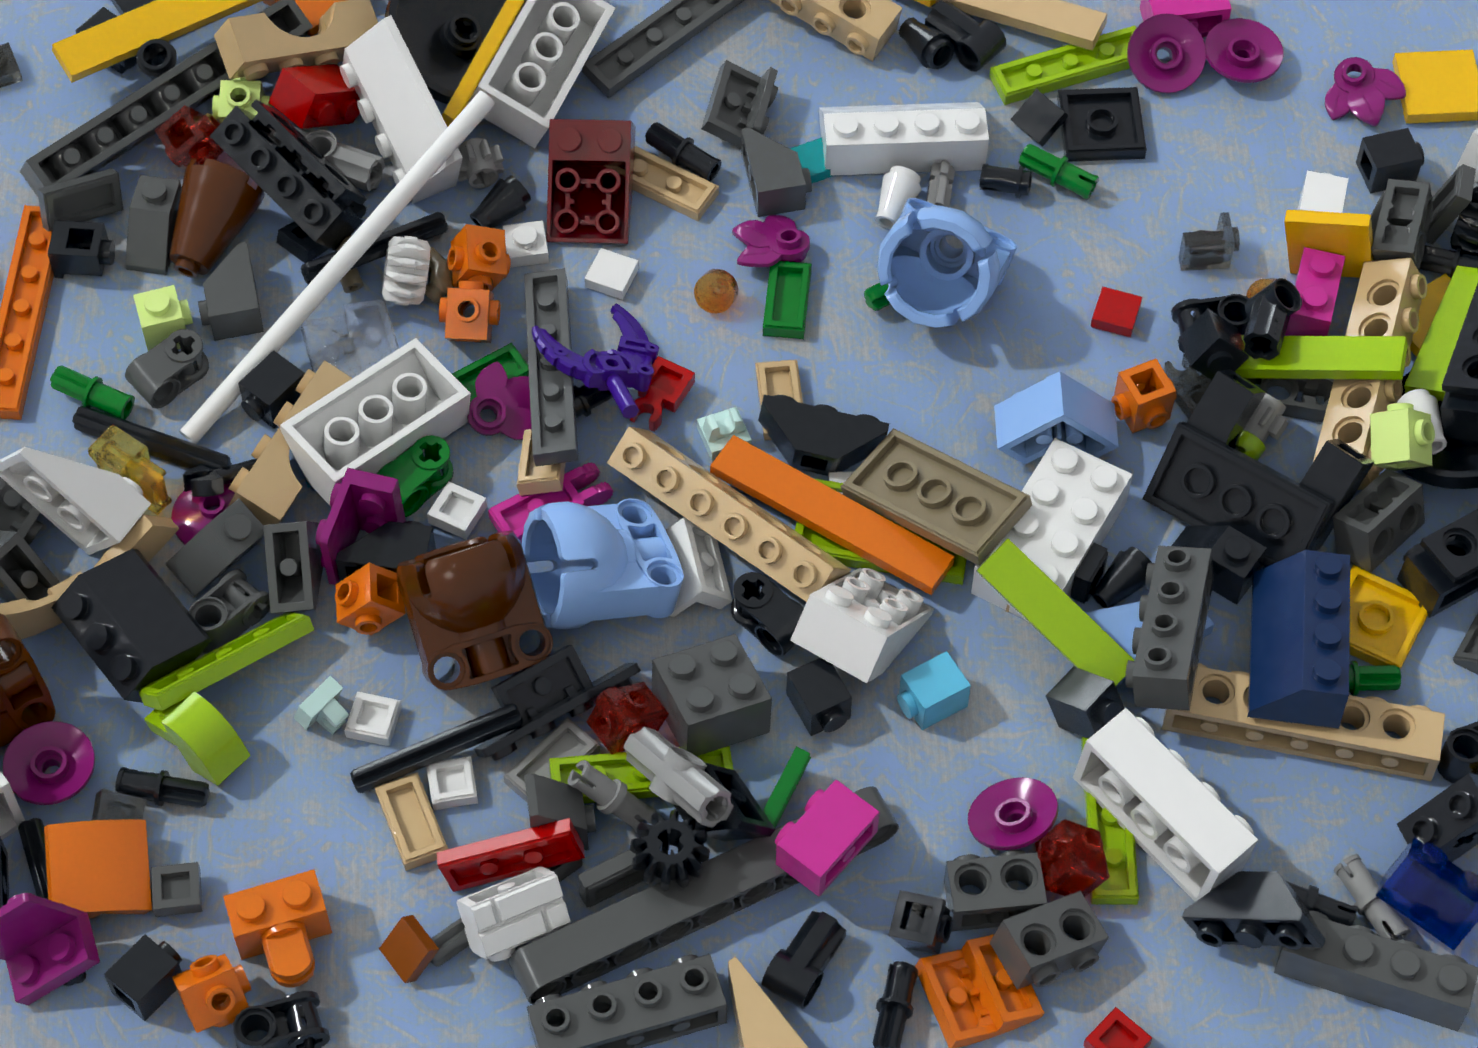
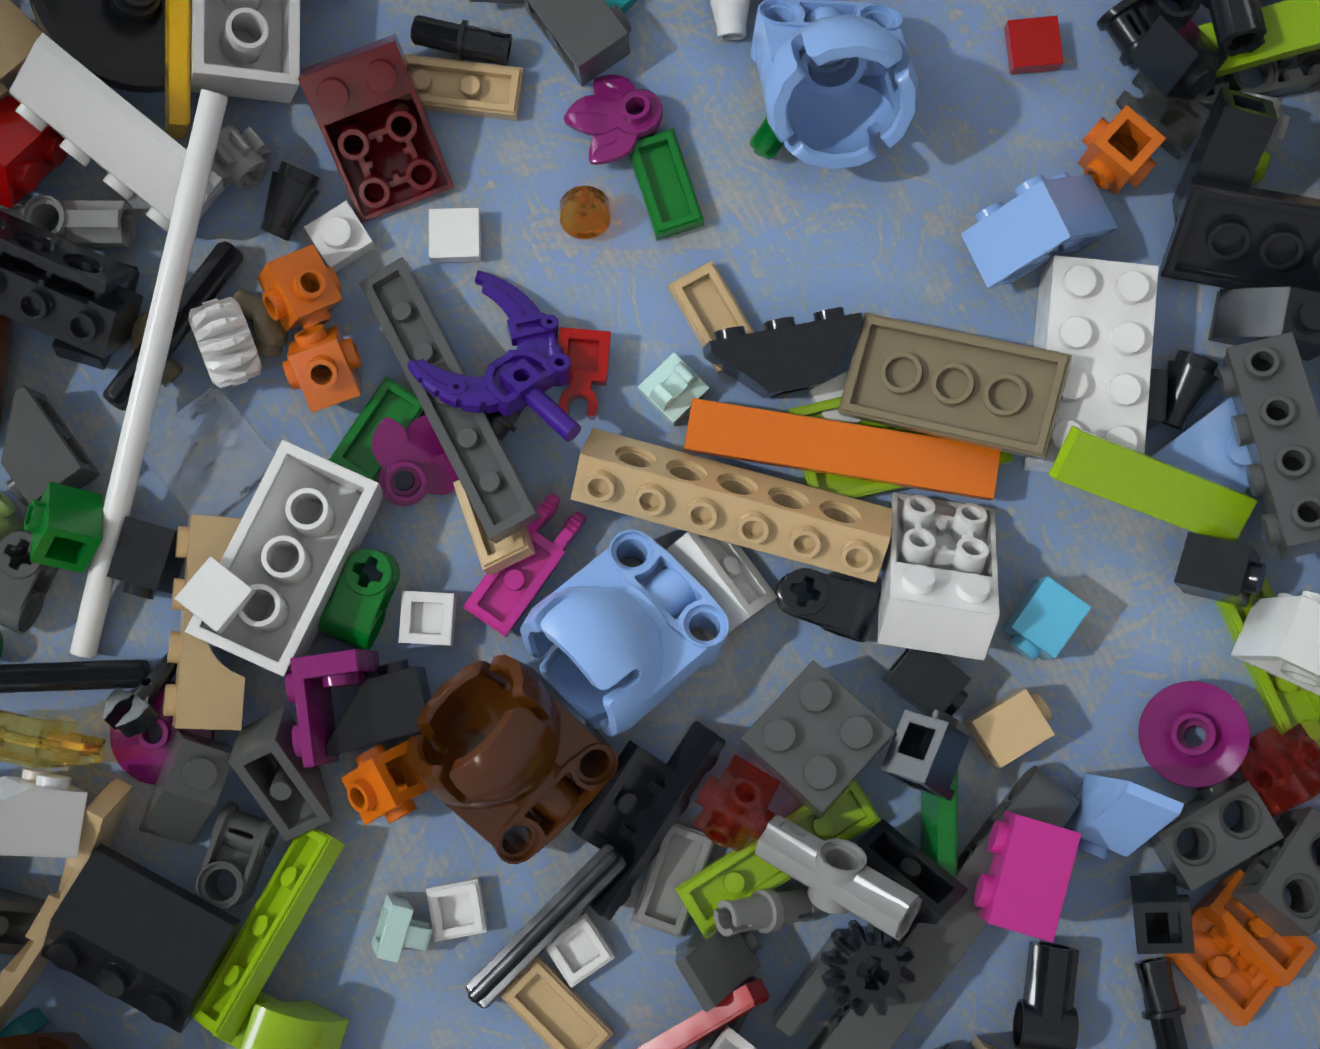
camera: 15 degrees left, 25 degrees up
(226, 338) = (65, 527): none -> green brick
(316, 407) = (215, 595): none -> white tile
(788, 724) = (926, 752): none -> black brick
(869, 754) = (1010, 726): none -> tan brick
(920, 826) = (1118, 815): none -> light blue slope

